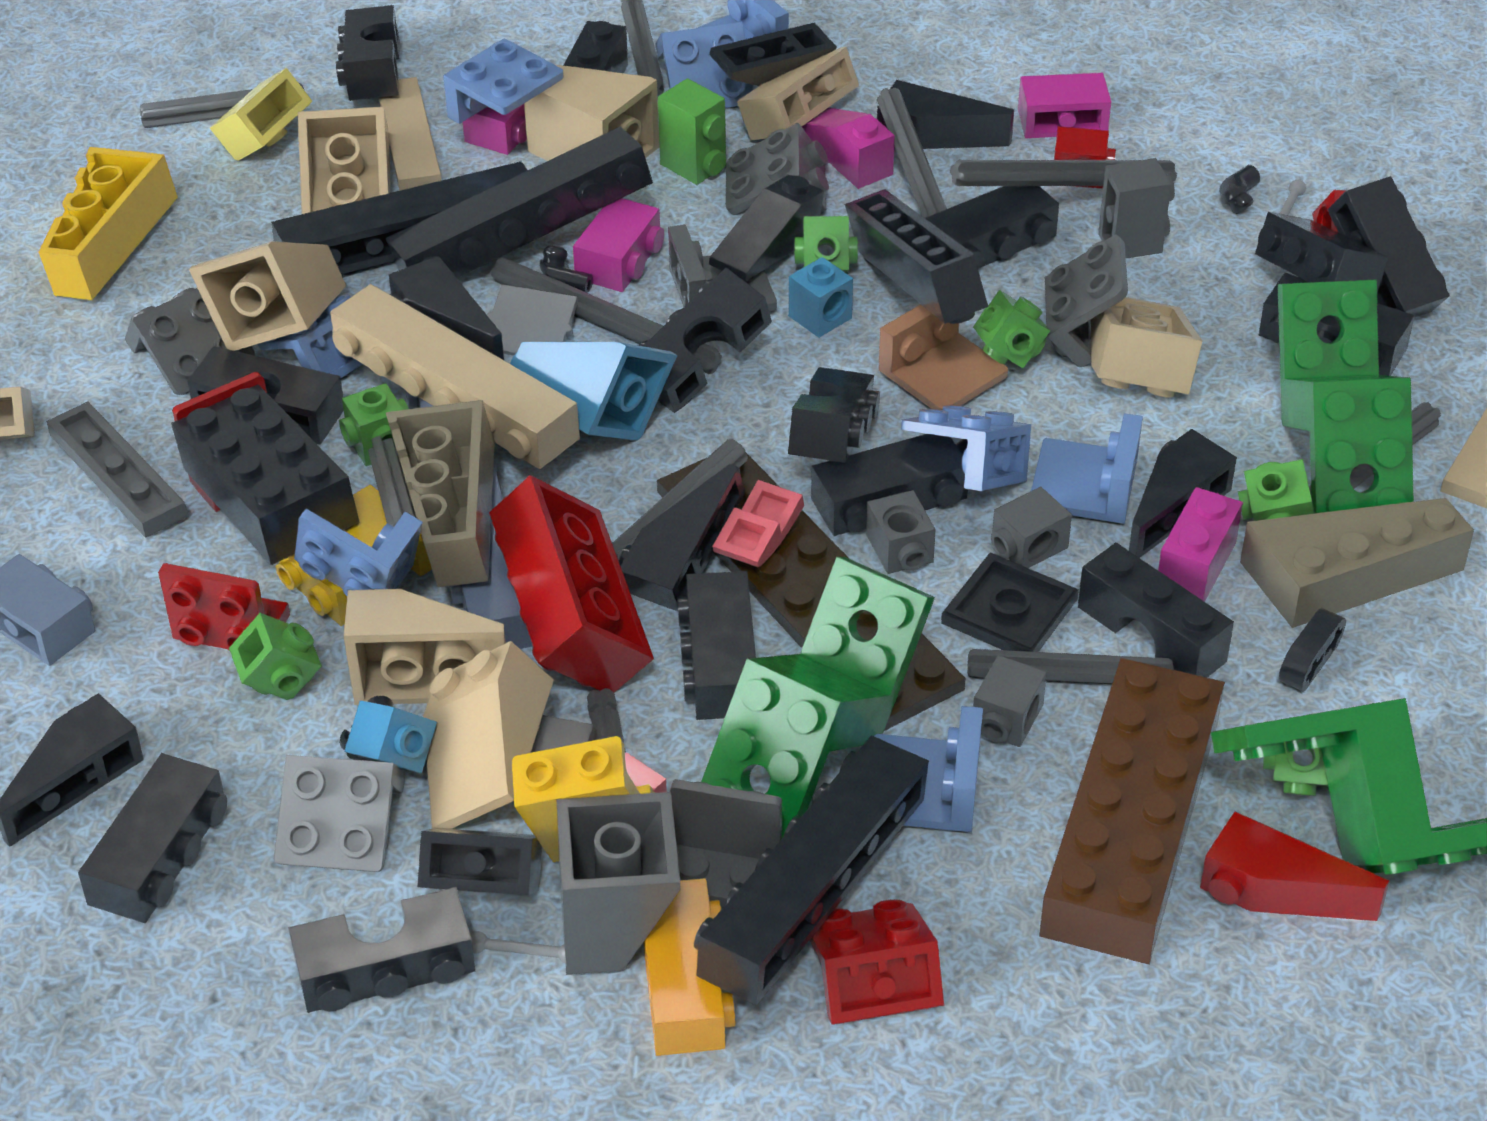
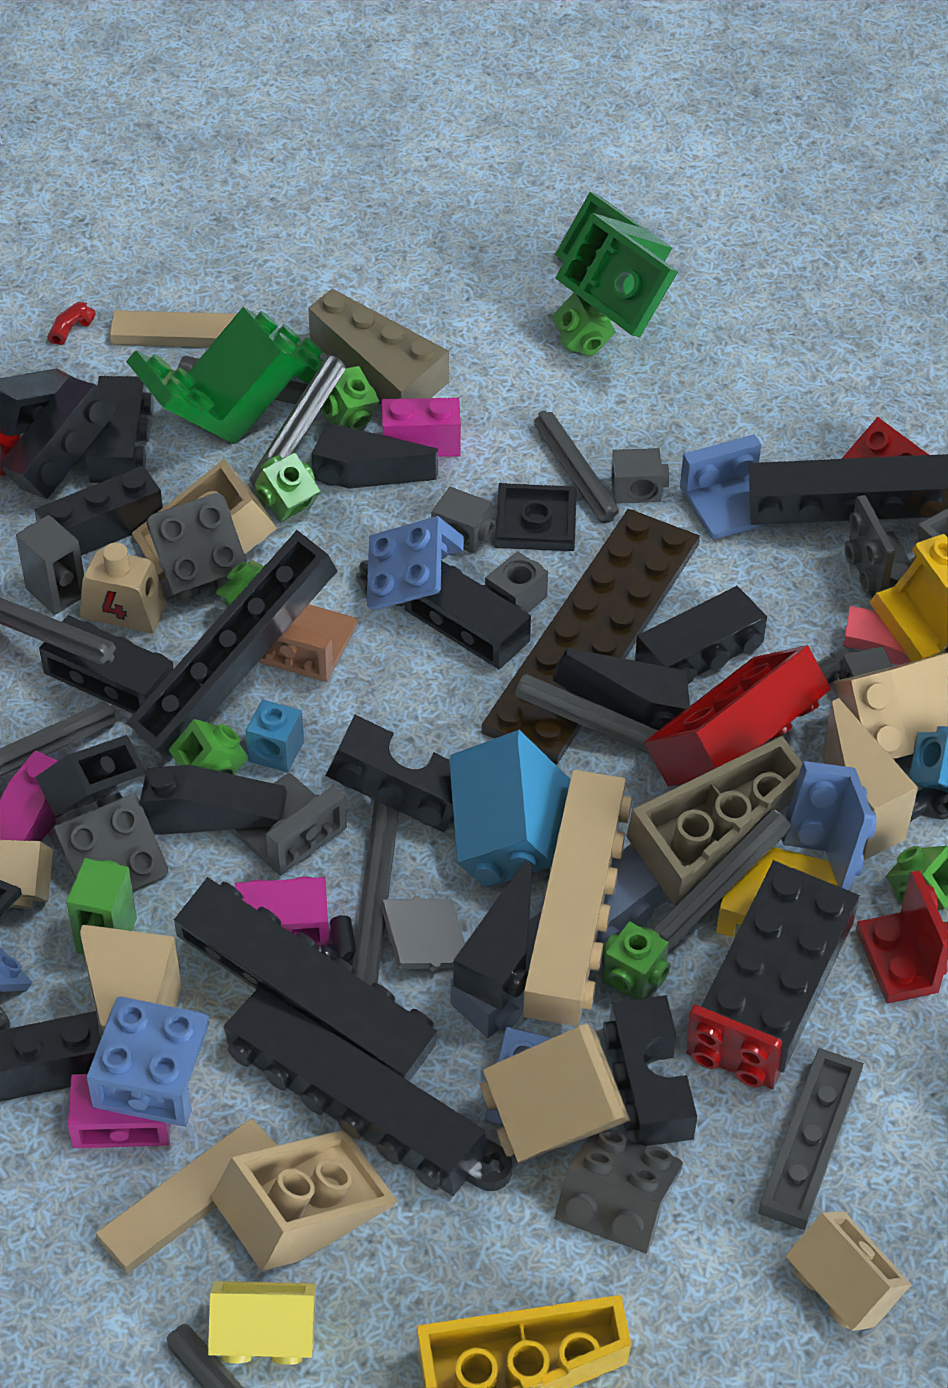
camera: 120 degrees left, 5 degrees up
(369, 53) = (61, 1311): black arch -> none
(760, 525) = (551, 647): coral slope -> none
(826, 697) = (739, 539): green bracket -> none
(827, 141) = (90, 775): none -> black brick
(833, 415) = (403, 662): black arch -> none
(1070, 236) = (122, 590): none -> tan torso
(1089, 477) = (373, 498): medium blue bracket -> none
(1132, 811) = (682, 388): reddish brown brick -> none
(1163, 404) = (286, 486): none -> bright green brick
(1184, 628) = (508, 417): black arch -> none
(1203, 273) = (106, 509): none -> black brick
(1249, 432) = (303, 412): none -> axle
(1283, 875) = (684, 323): red slope -> none
(1312, 649) = (477, 354): black beam -> none

